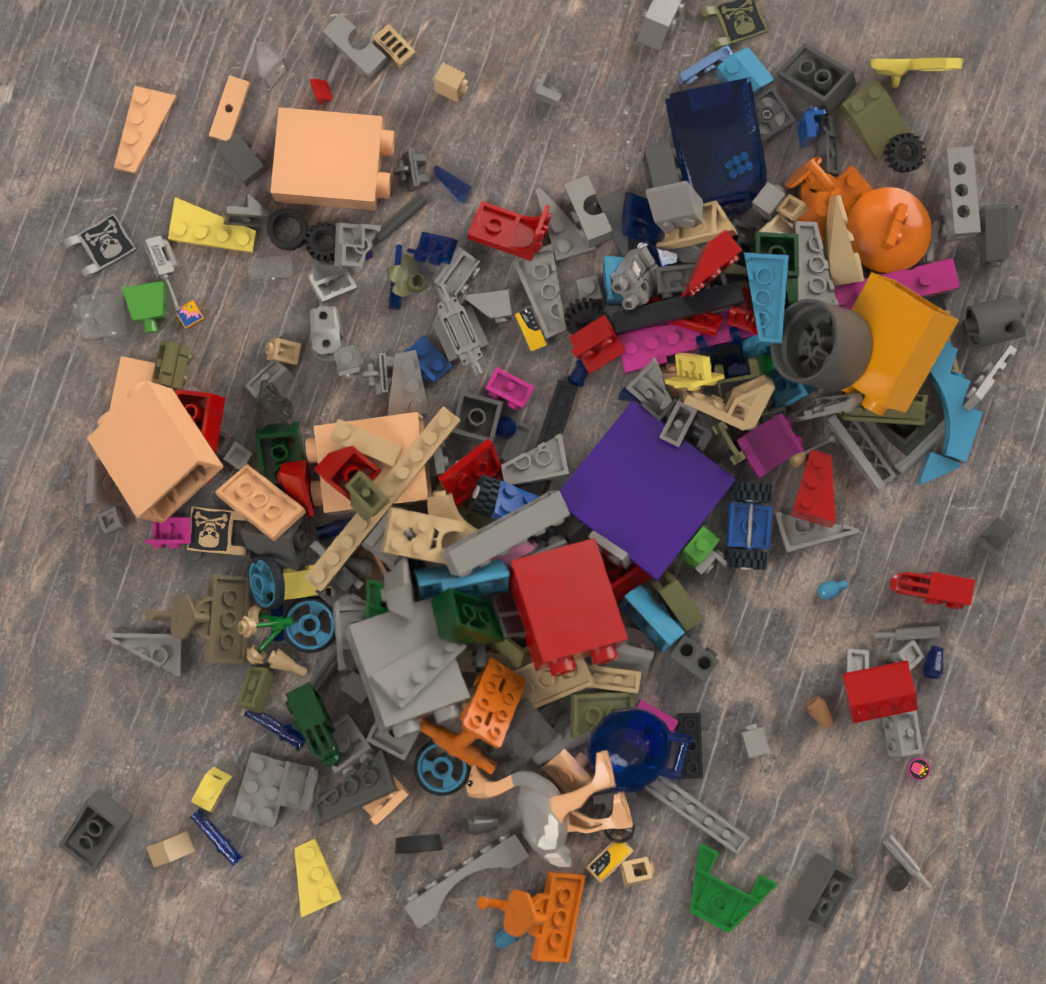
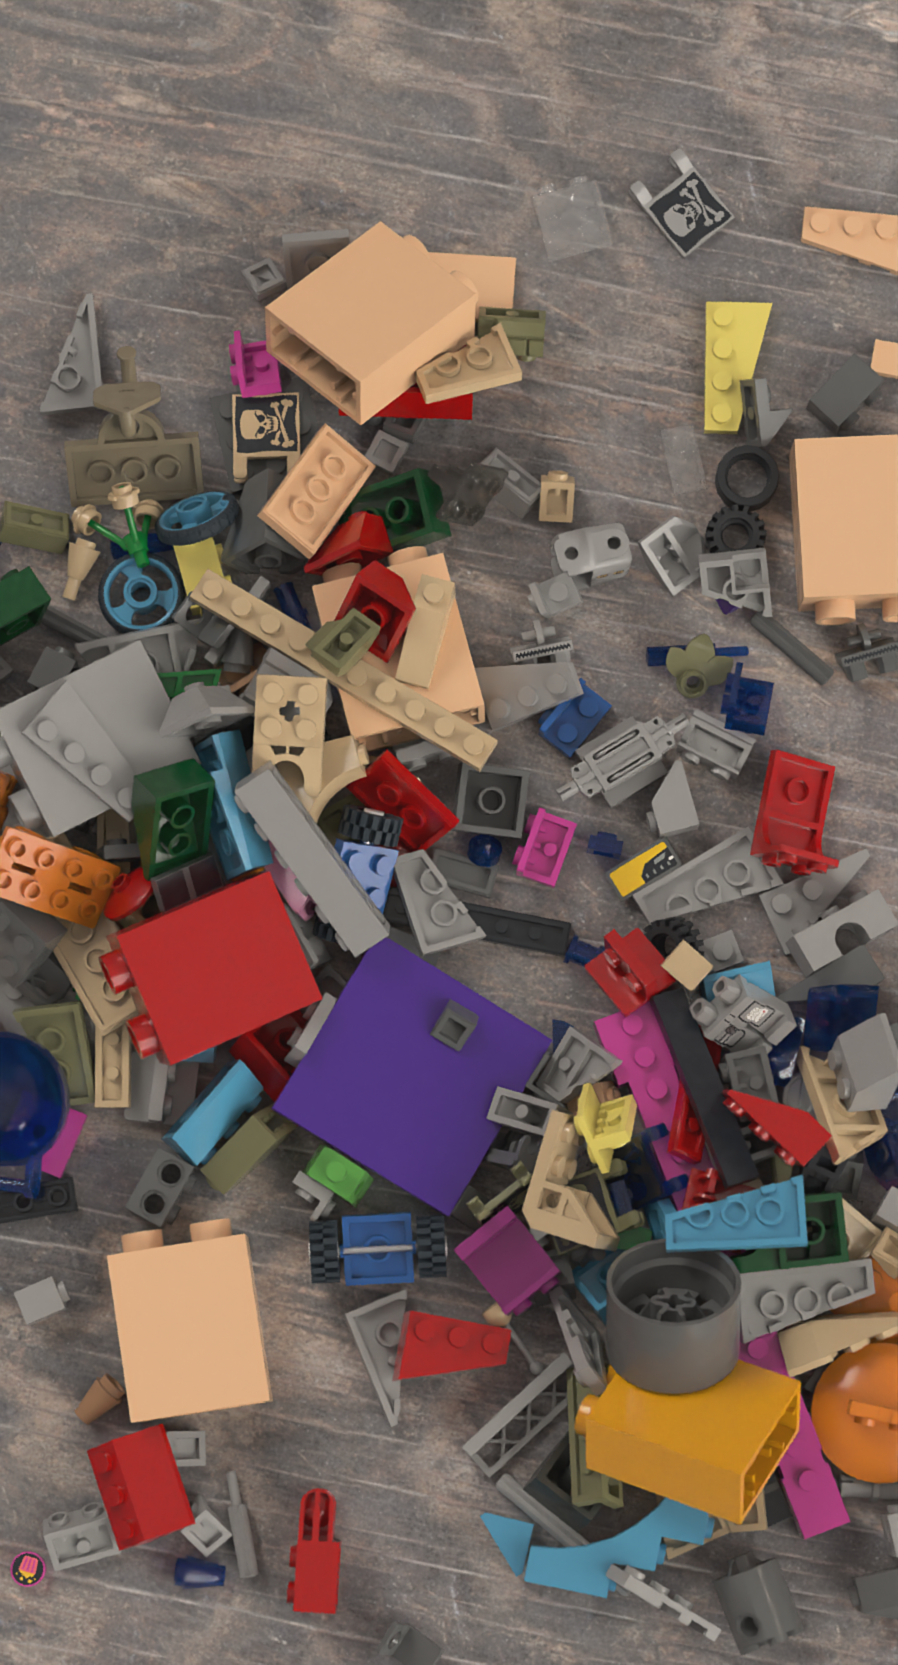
camera: 85 degrees right, 5 degrees down
(147, 304) = (600, 285): bright green torso -> none
(162, 268) = (661, 297): light grey piece -> none
(190, 314) = (594, 350): tile -> none
(193, 386) = (474, 368): none -> tan wing
(456, 186) = (849, 727): clear blue slope -> none
(509, 654) = (127, 894): none -> red dish
(512, 350) = (605, 845): none -> clear blue plate
(600, 307) = (687, 965): none -> tan slope
(617, 458) = (454, 1025): none -> dark grey slope
(782, 649) = (188, 1323): none -> light nougat brick
(831, 589) = (296, 1394): dark azure cylinder -> none

